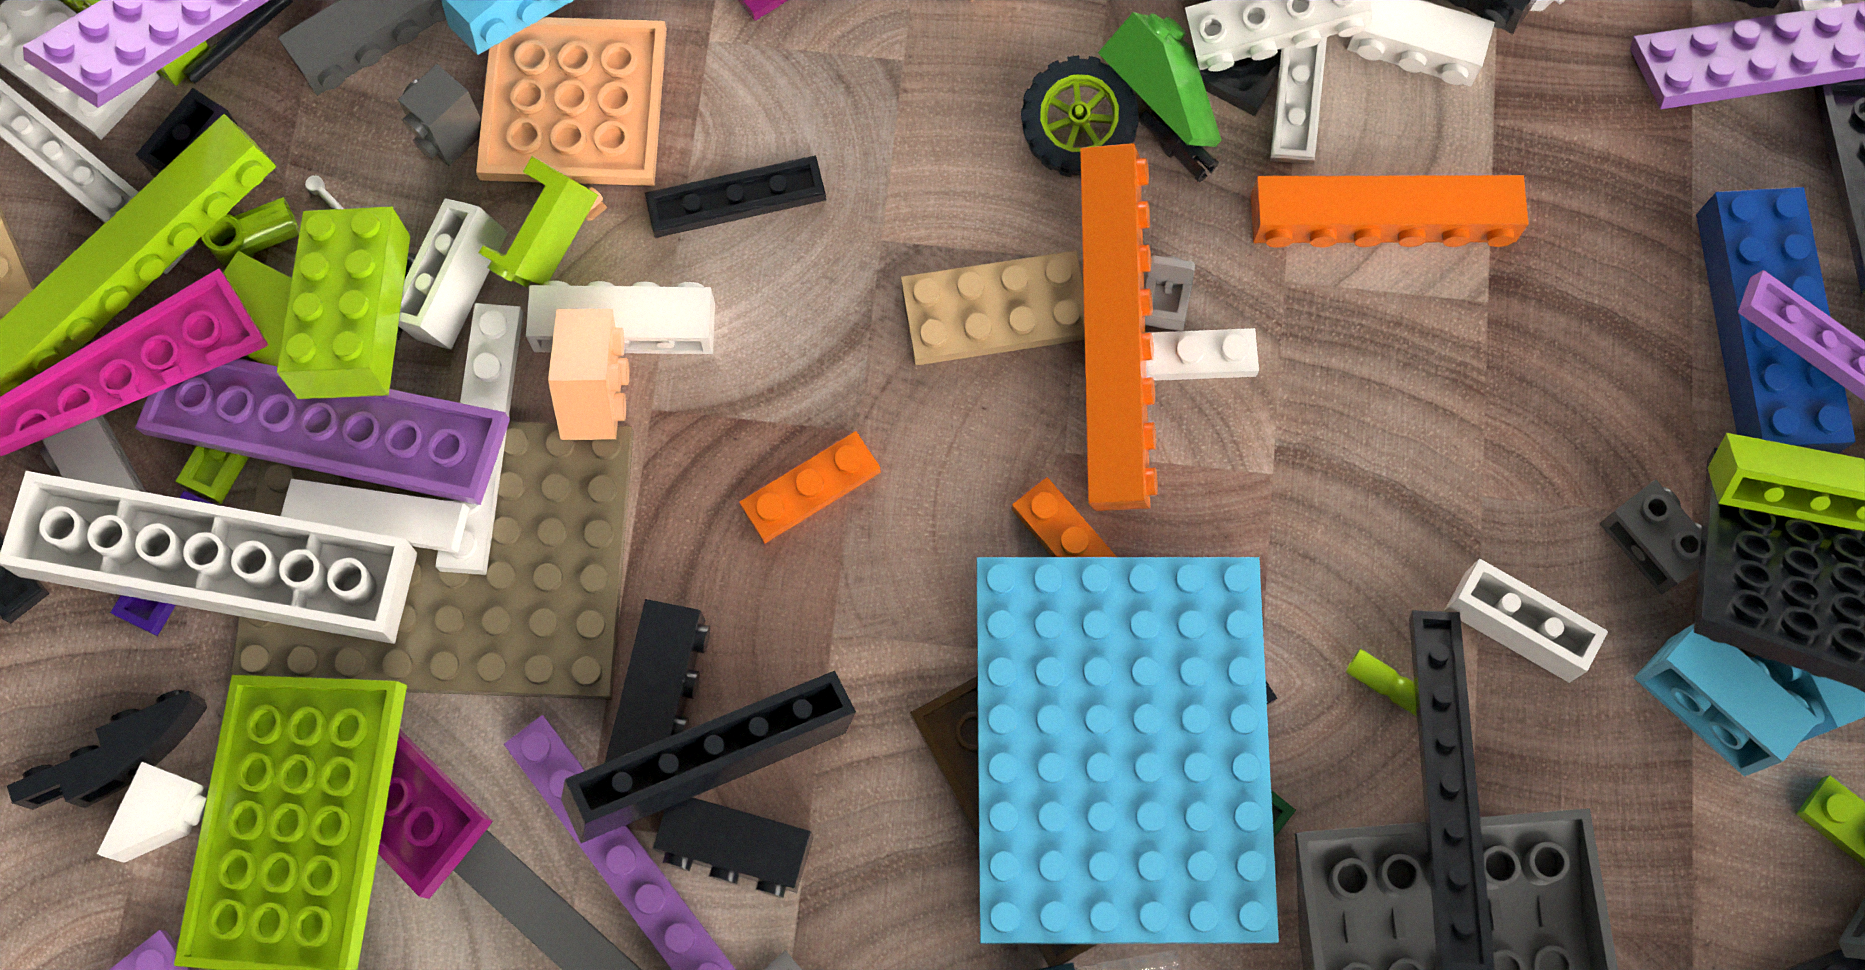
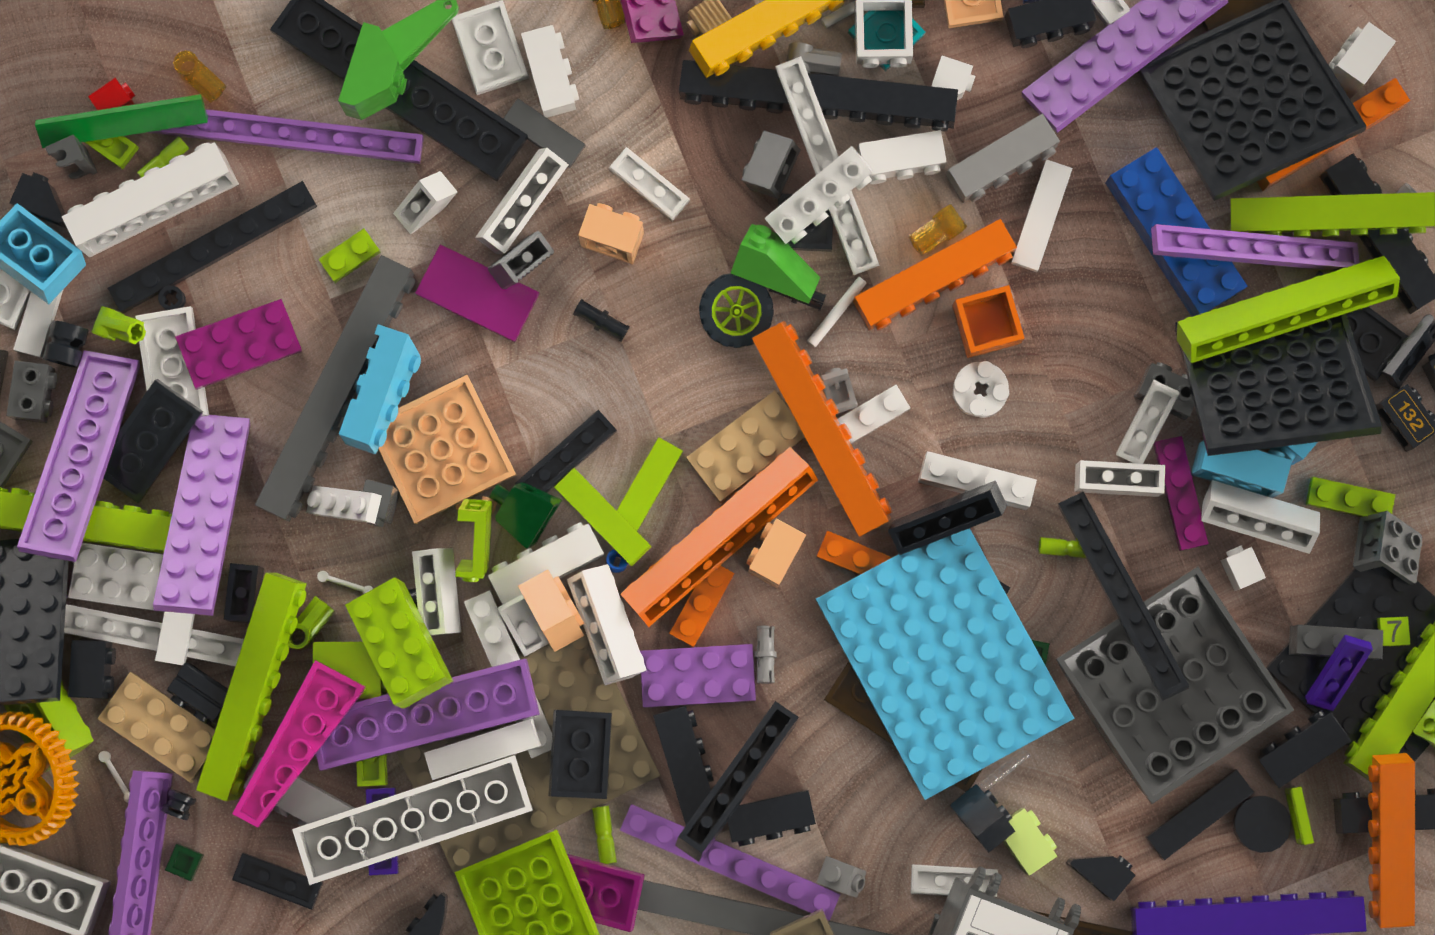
camera: 30 degrees left, 10 degrees up
(43, 235) = (199, 692): none -> black brick
(65, 150) = (174, 638): none -> white tile
(388, 84) = (343, 504): none -> white plate
(480, 734) = (605, 840): none -> lime piece
(506, 596) = (580, 754): none -> black plate
(531, 375) = (523, 625): none -> white plate
(633, 232) = (524, 511): none -> dark green torso
(655, 439) = (606, 624): none -> white brick
(717, 359) = (610, 559): none -> blue hinge
(738, 296) = (603, 516): none -> lime tile
(746, 584) = (698, 675): none -> medium lavender plate
(814, 295) = (649, 482): none -> lime tile
(860, 604) = (765, 654): none -> light grey pin
(885, 402) = (719, 536): none -> orange brick
(886, 44) = (601, 320): none -> black pin
(954, 462) = (776, 553): none -> light nougat brick
(1215, 196) = (836, 312): none -> white bar
(1236, 537) = (947, 517): none -> black brick
(1305, 516) = (964, 476): none -> white brick
(1390, 378) = (981, 373): none -> white plate
(1432, 153) = (943, 226): none -> clear yellow piece
(1435, 304) = (988, 321): none -> orange piece
(1564, 106) = (1003, 158): none -> light grey brick
(1582, 210) = (1041, 215): none -> white tile
(1607, 699) = (1181, 494): none -> magenta plate
(1610, 559) = (1147, 422): none -> white tile
(1655, 854) = (1242, 567): none -> white brick
(1722, 791) = (1261, 516): none -> white brick

